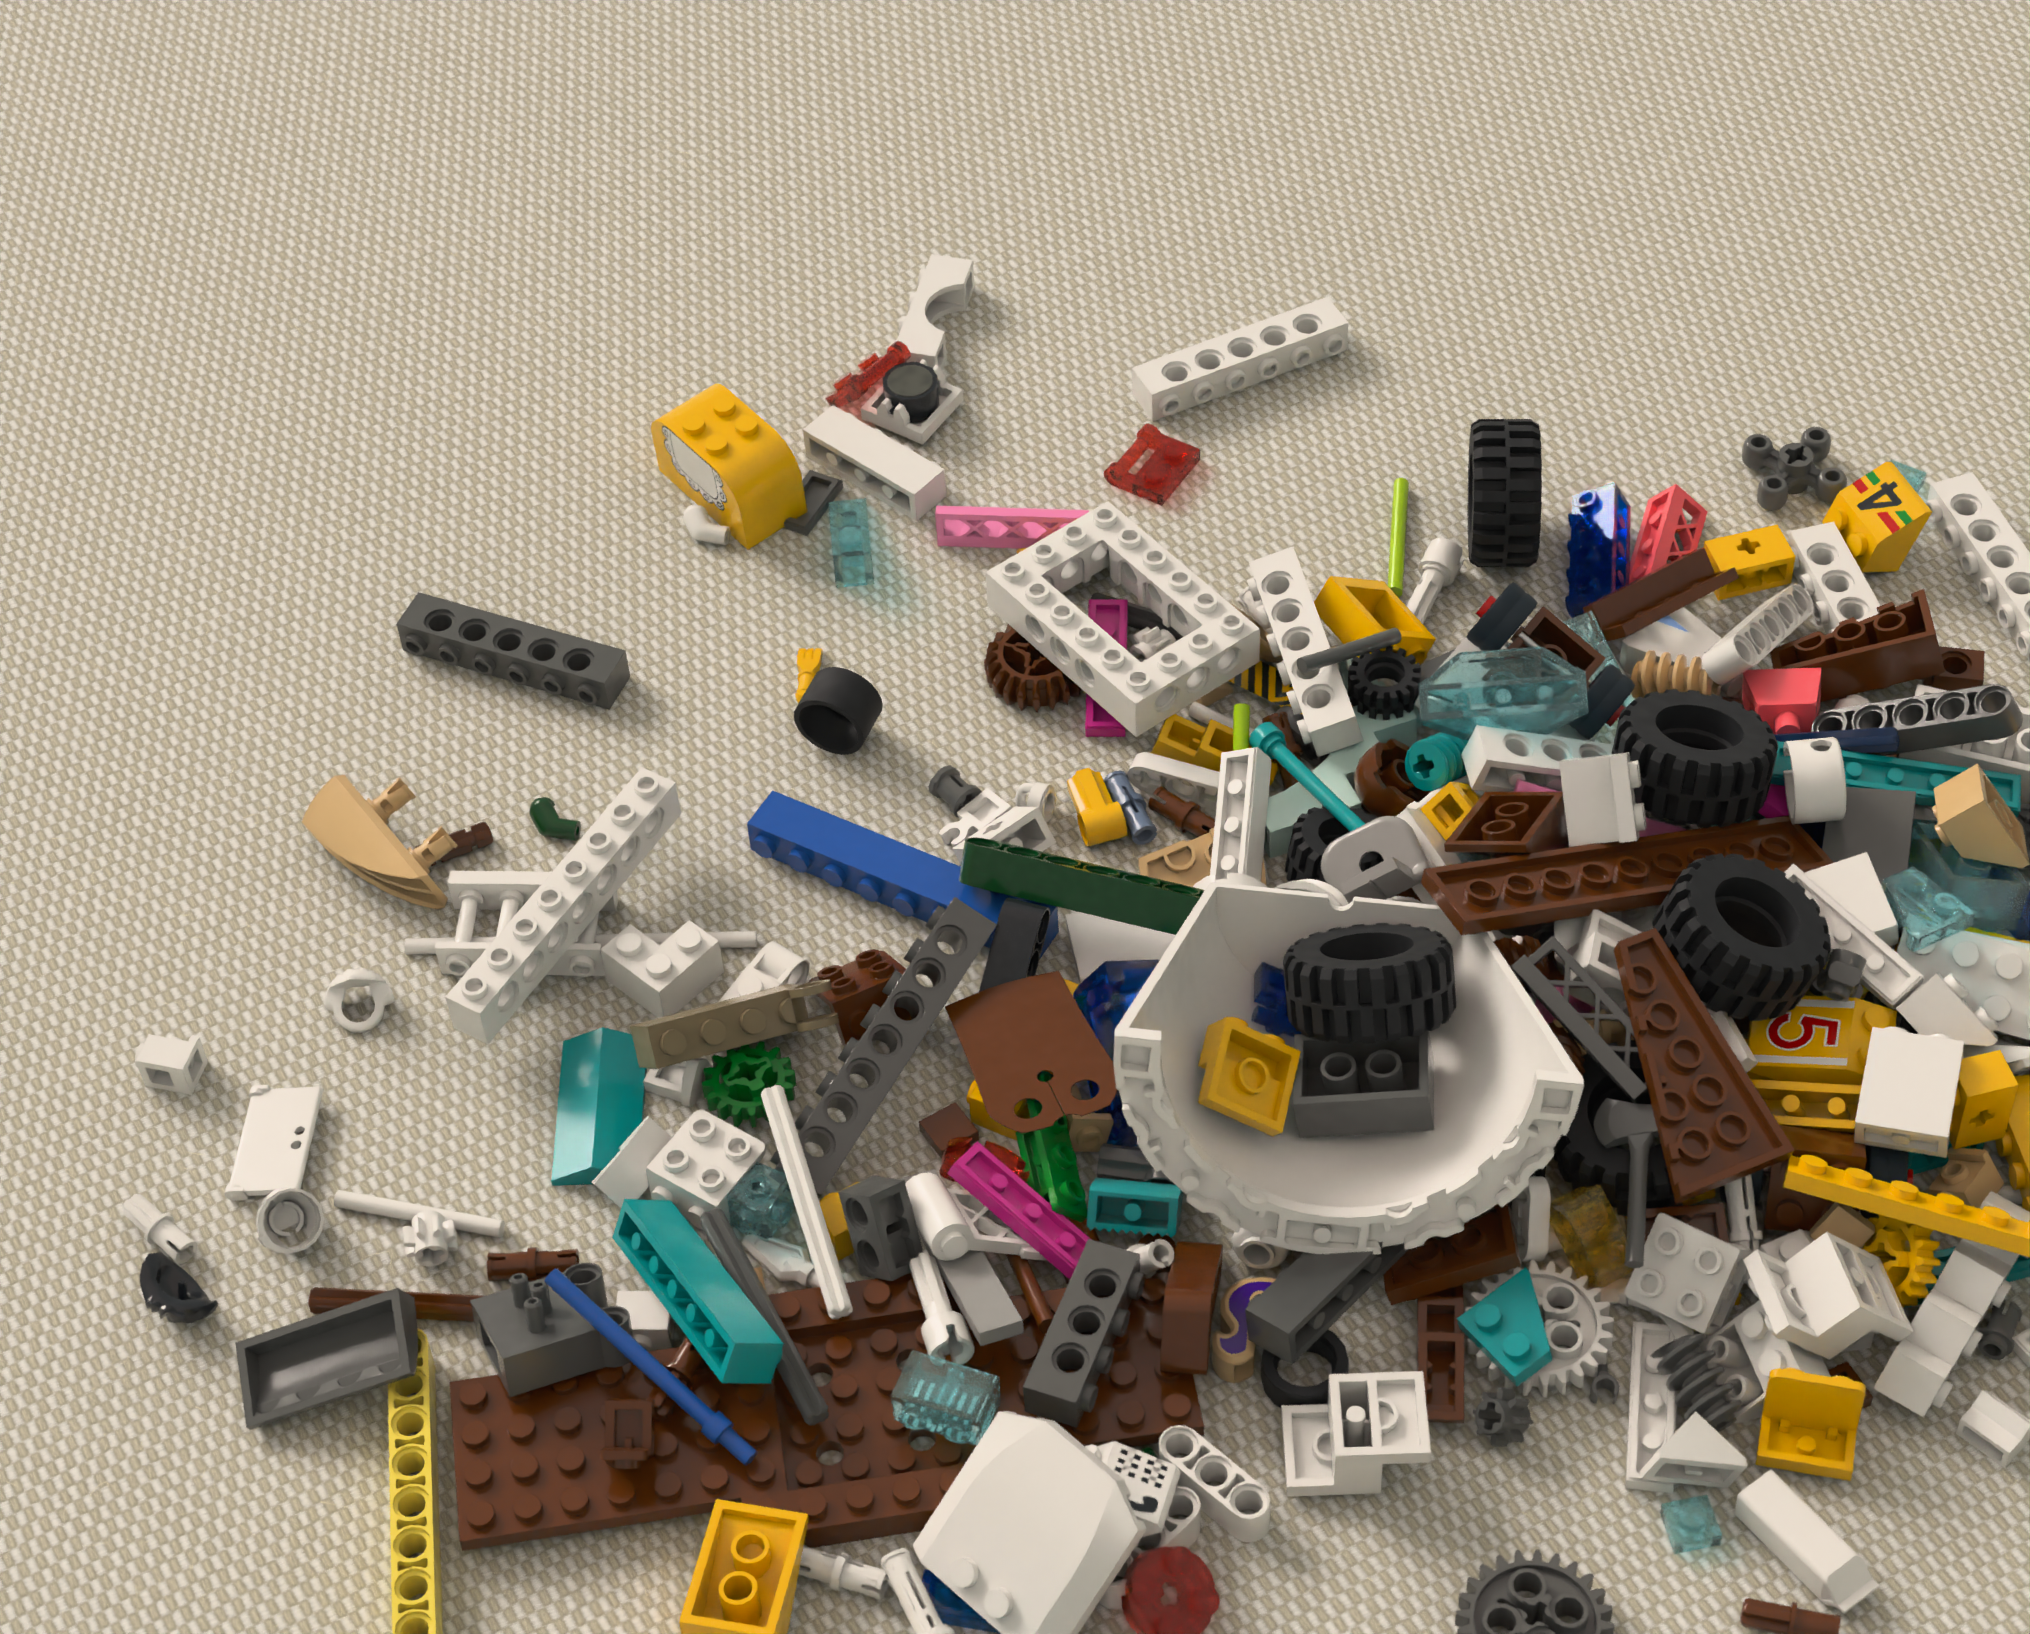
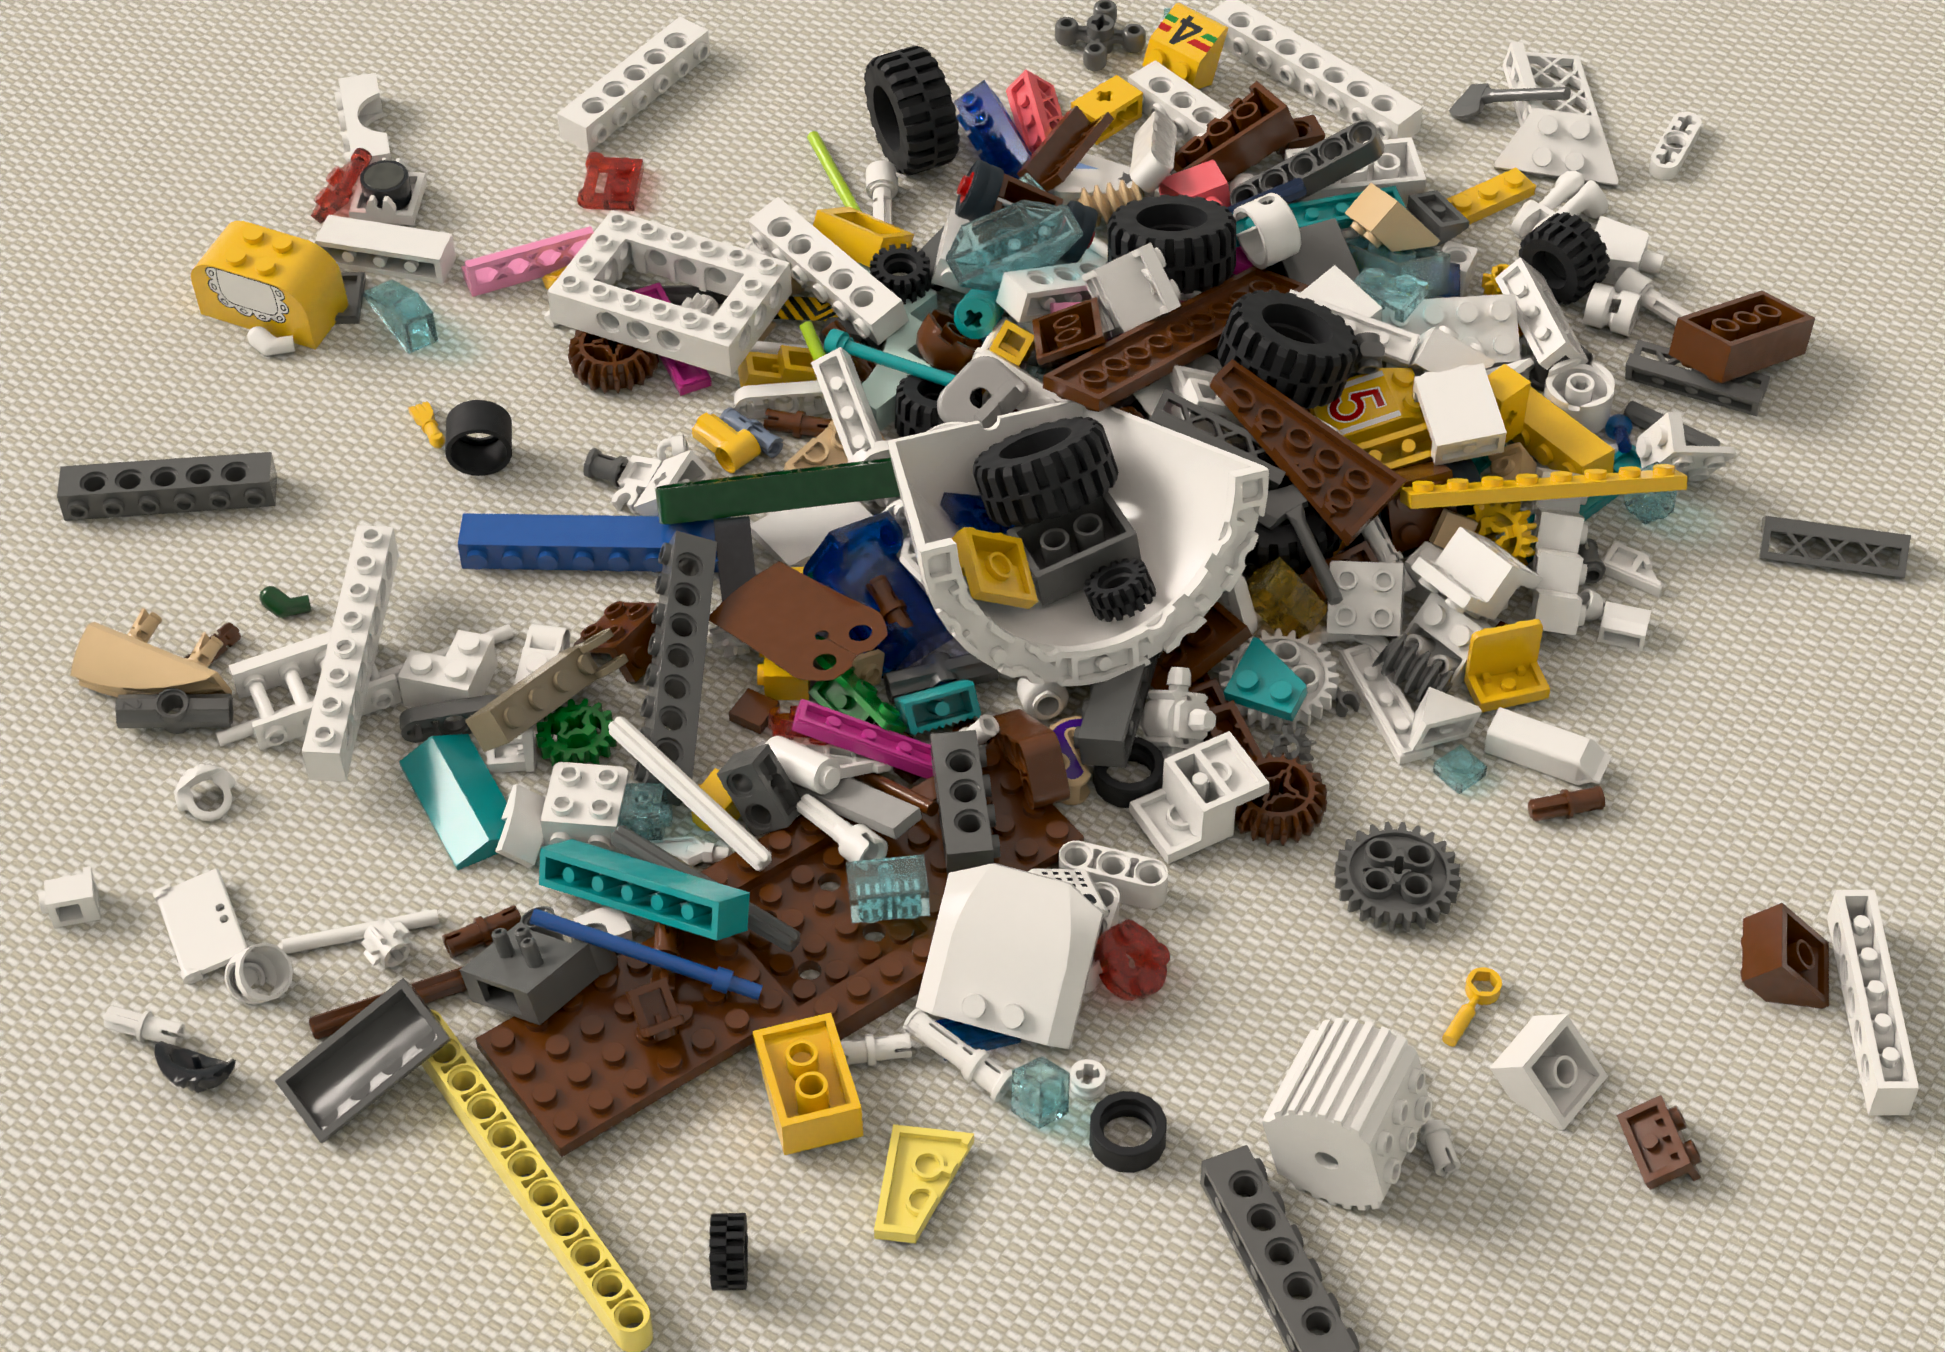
camera: 30 degrees left, 0 degrees up
(358, 890) = (153, 710): none -> dark grey piece
(620, 1010) = (438, 712): none -> dark grey beam
(1348, 650) = (868, 255): dark grey bar -> none
(1383, 1154) = (1119, 589): none -> black tyre
(1385, 1325) = (1176, 716): none -> white piece
(1447, 1487) = (1292, 805): none -> reddish brown gear
(1967, 1385) = (1594, 604): none -> white hinge

